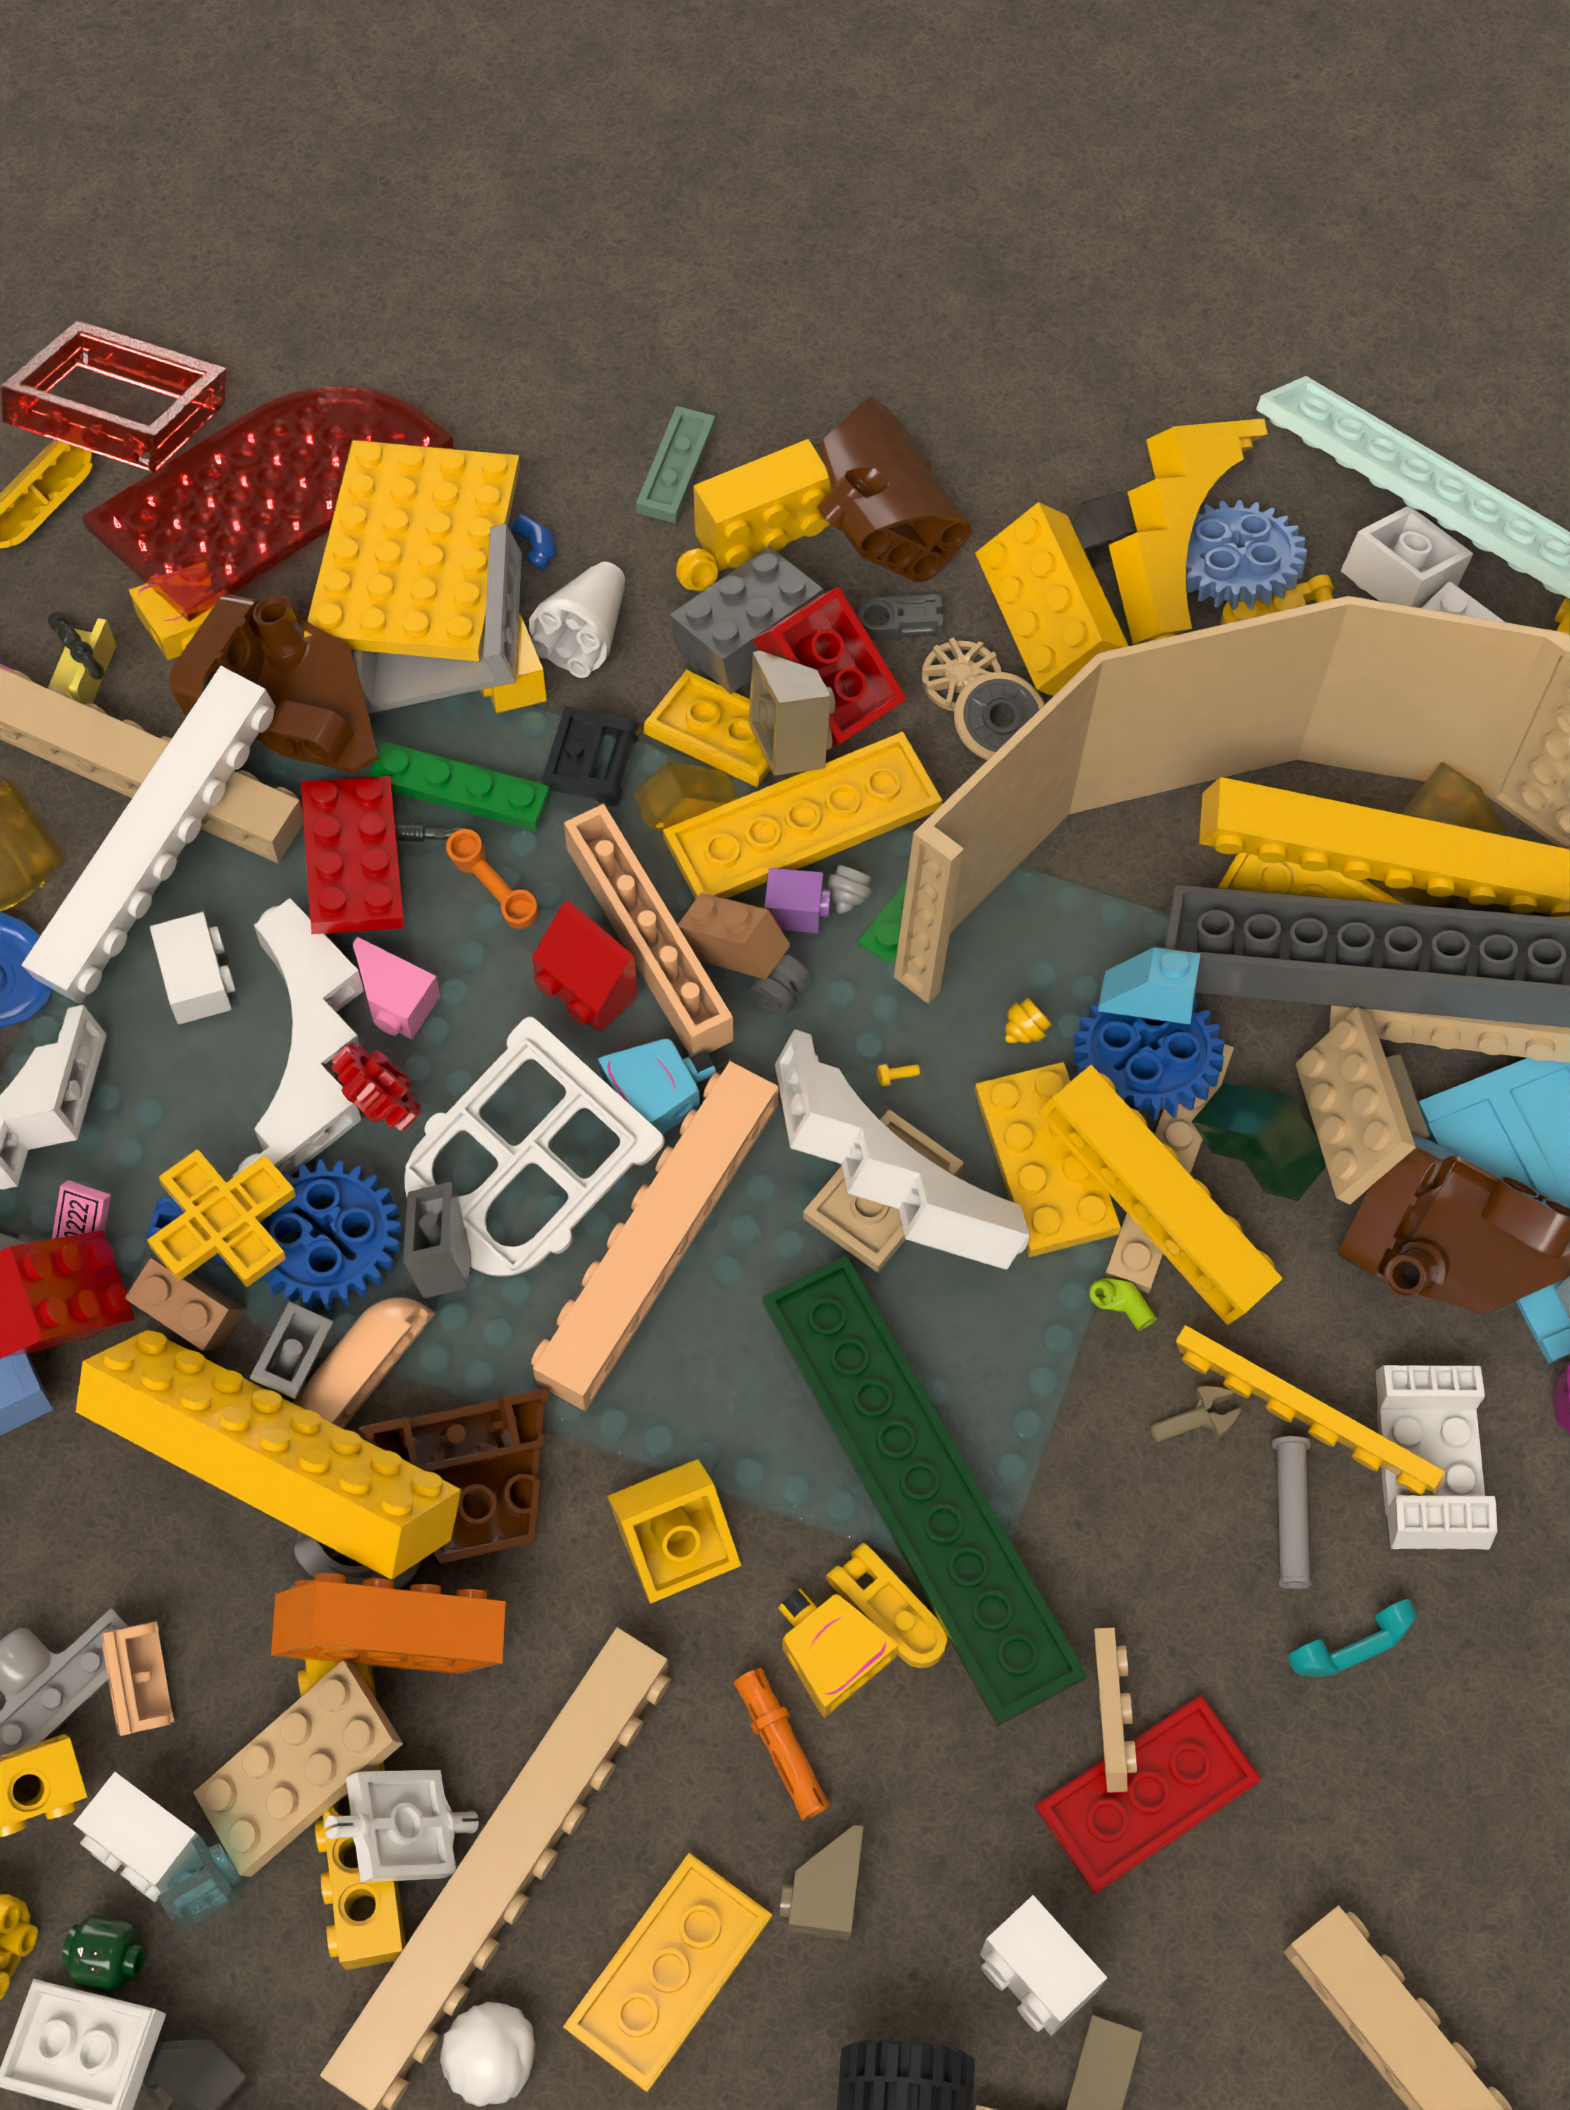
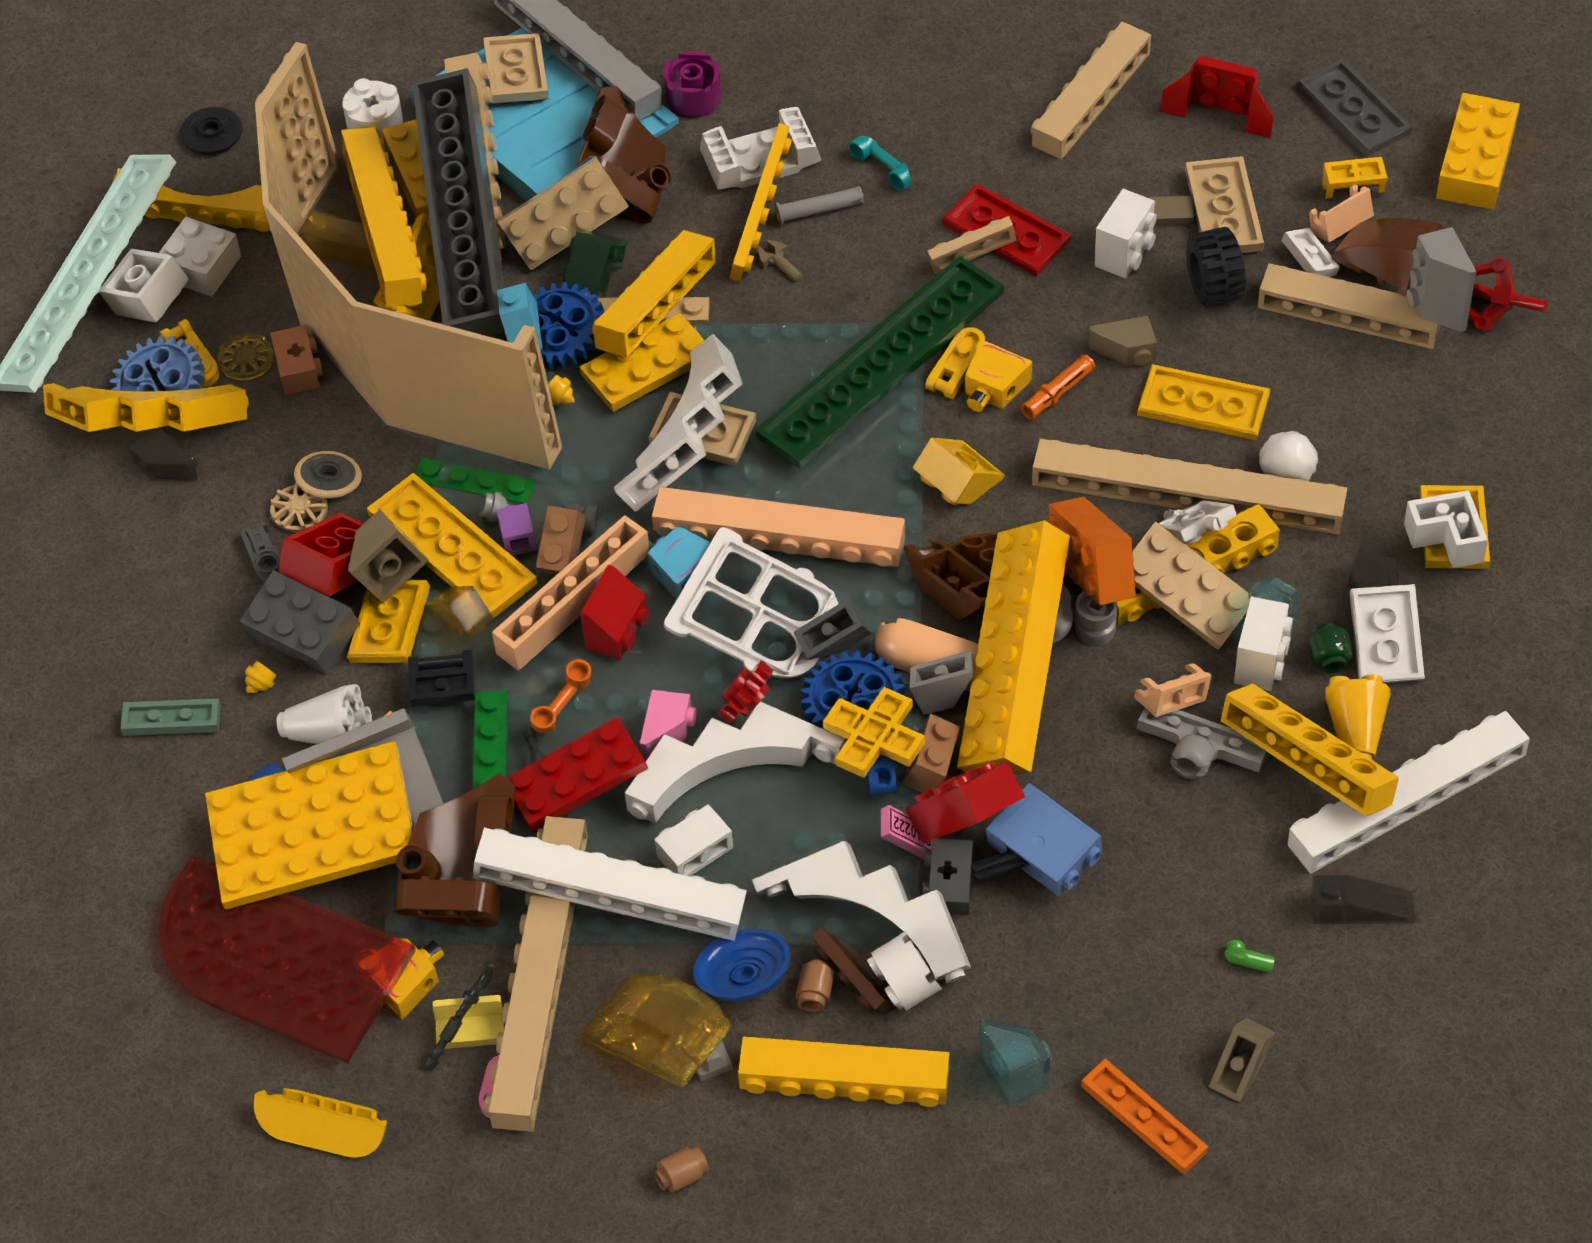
camera: 105 degrees left, 10 degrees down
(191, 380) = (179, 1076): clear red window -> none
(761, 505) = (203, 638): yellow brick -> none
(885, 1074) = (621, 453): yellow piece -> none
(888, 496) = (188, 551): reddish brown panel -> none
(1049, 596) = (236, 455): yellow brick -> none
(1122, 1297) = (719, 309): lime arm -> none

